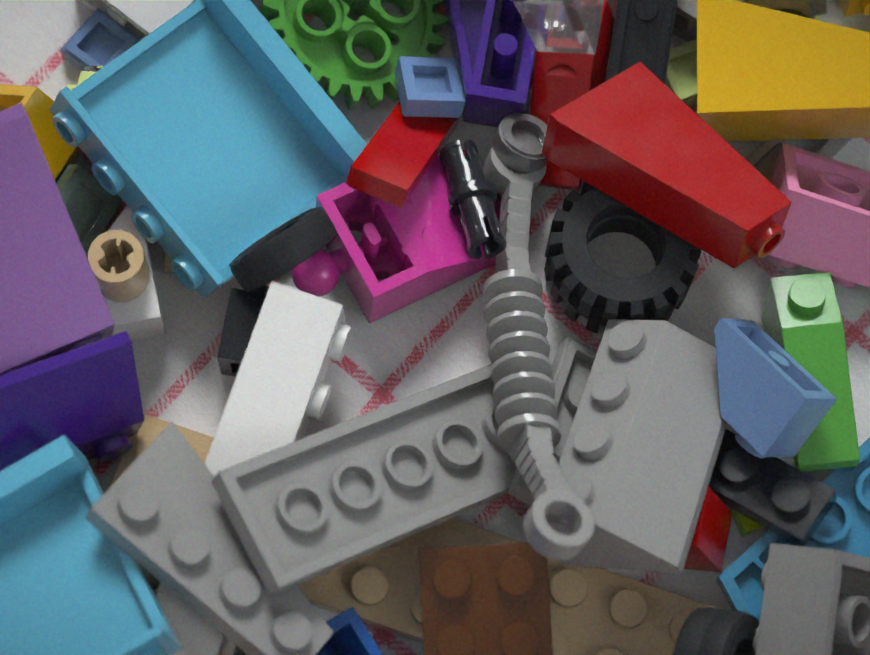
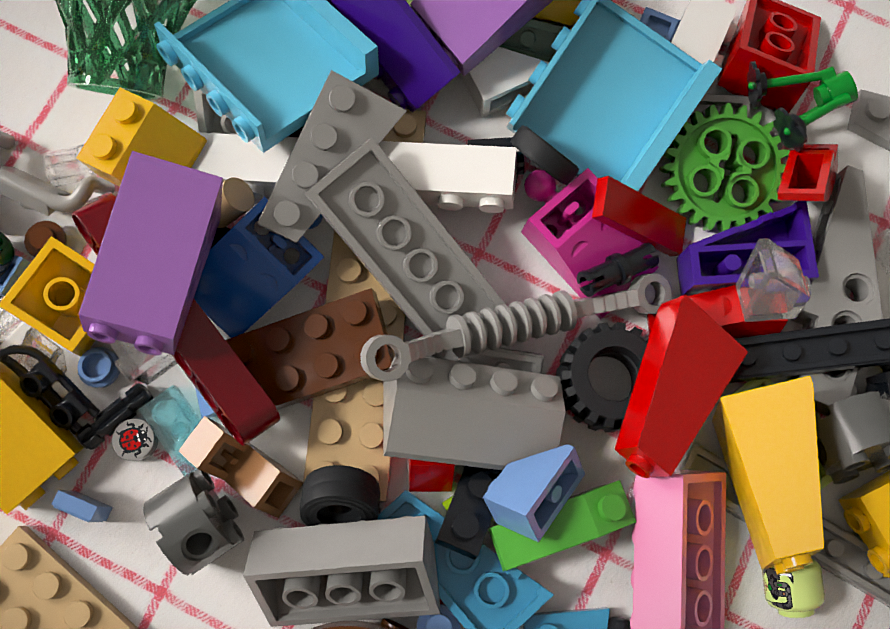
camera: 80 degrees right, 5 degrees up
(119, 265) = (505, 61): tan piece -> none
(429, 87) = (688, 224): medium blue plate -> none
(520, 142) = (665, 288): flat silver tile -> none

